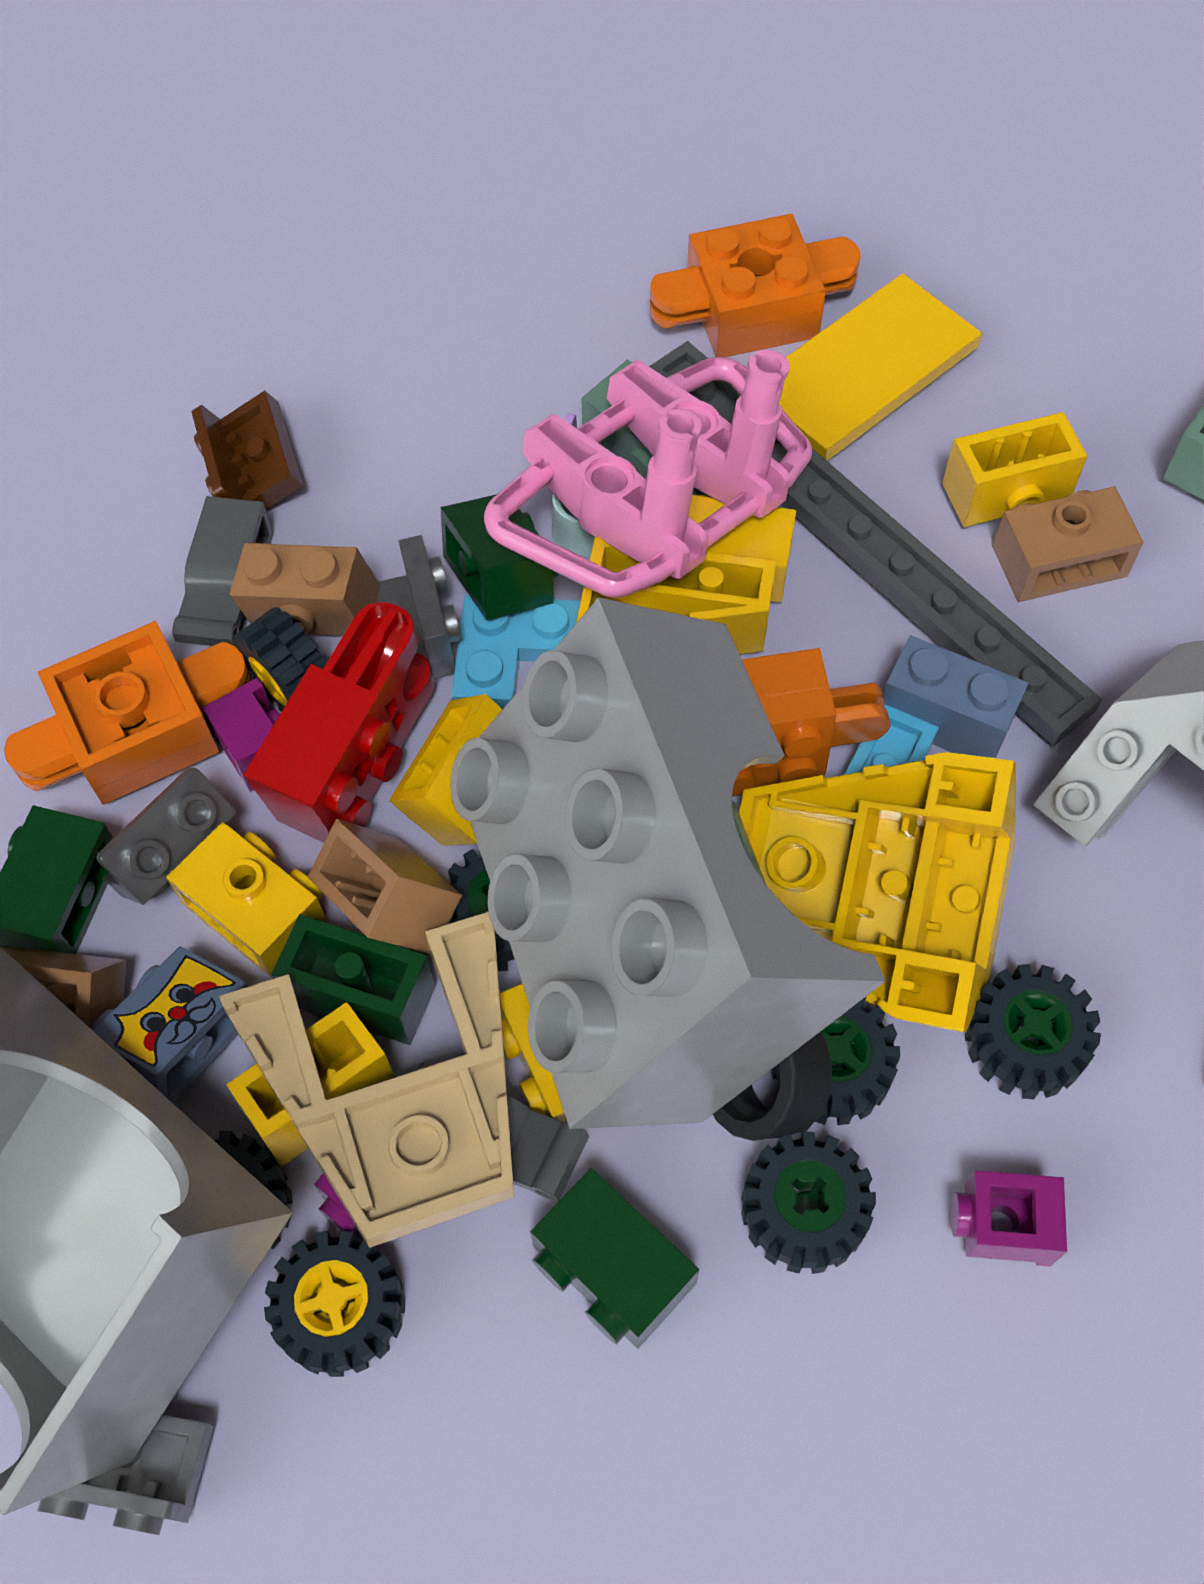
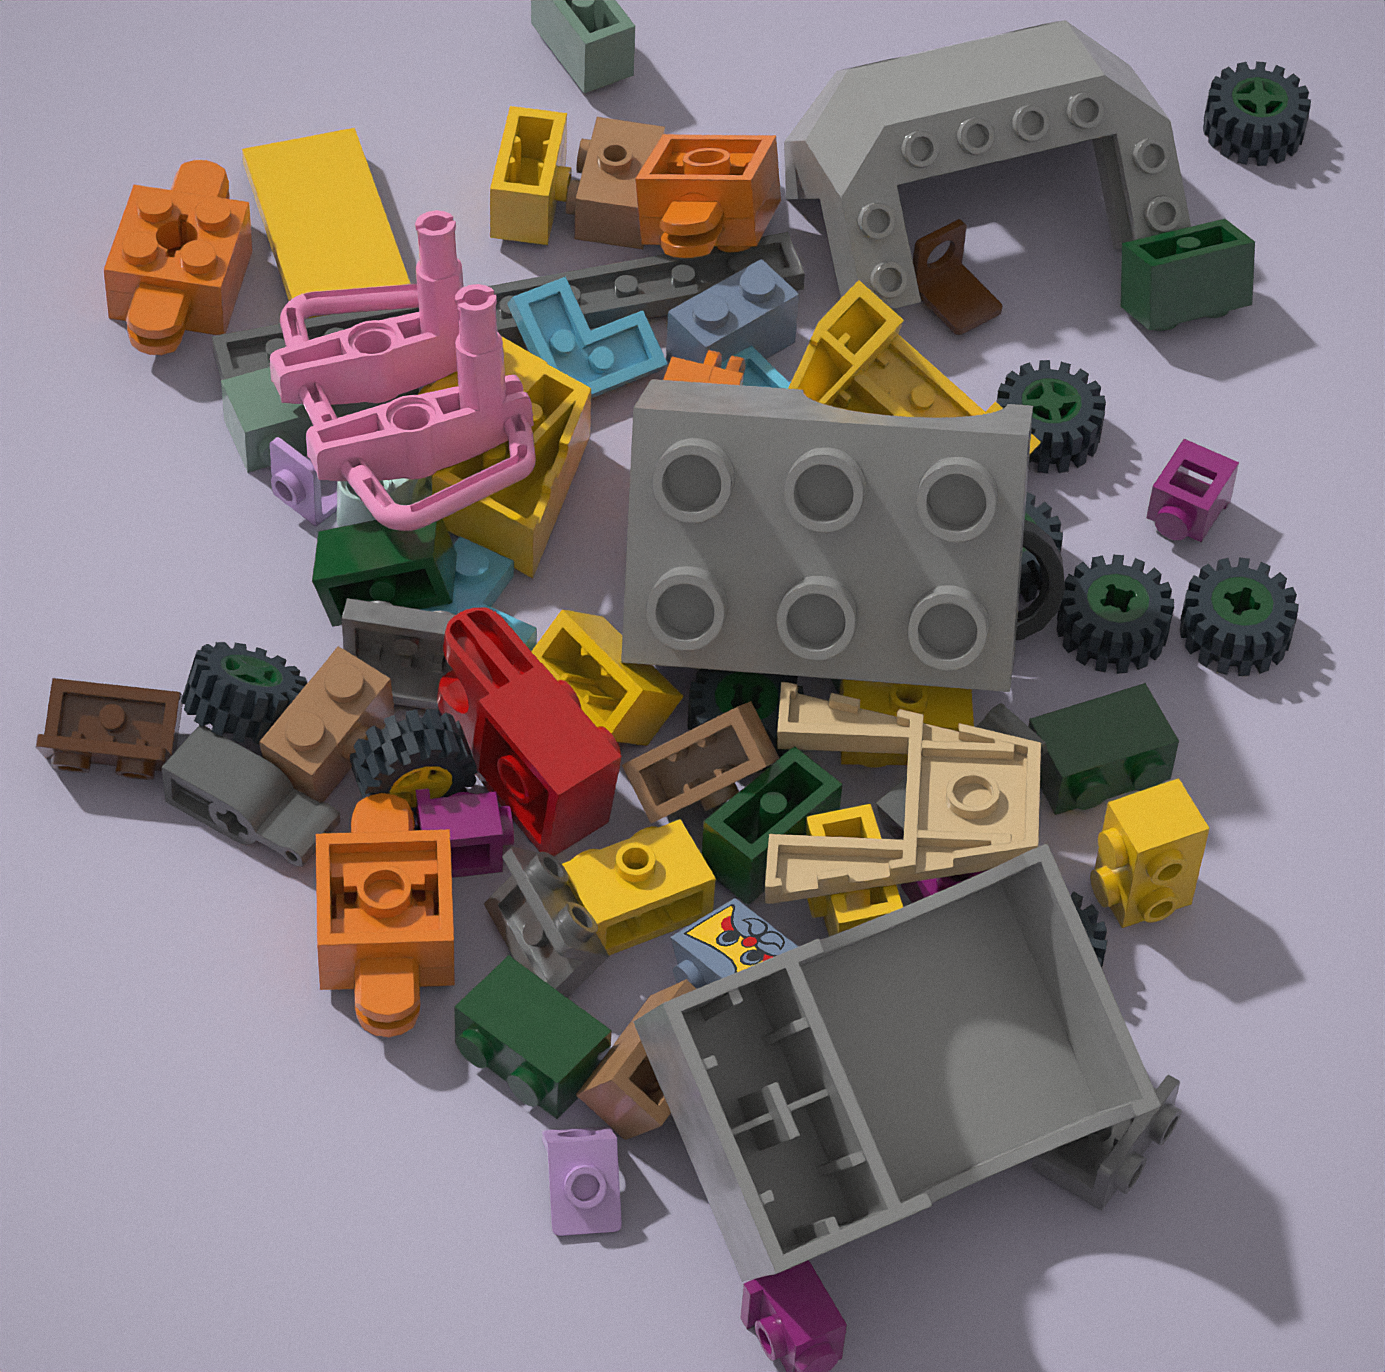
camera: 70 degrees left, 10 degrees down
(307, 492) = (239, 690): none -> black wheel
(463, 1363) = (1149, 854): none -> yellow brick
(830, 596) = (597, 357): none -> medium azure plate
(854, 1361) = (1257, 632): none -> black wheel
(1083, 607) = (708, 193): none -> orange brick
(1144, 869) = (948, 285): none -> reddish brown bracket

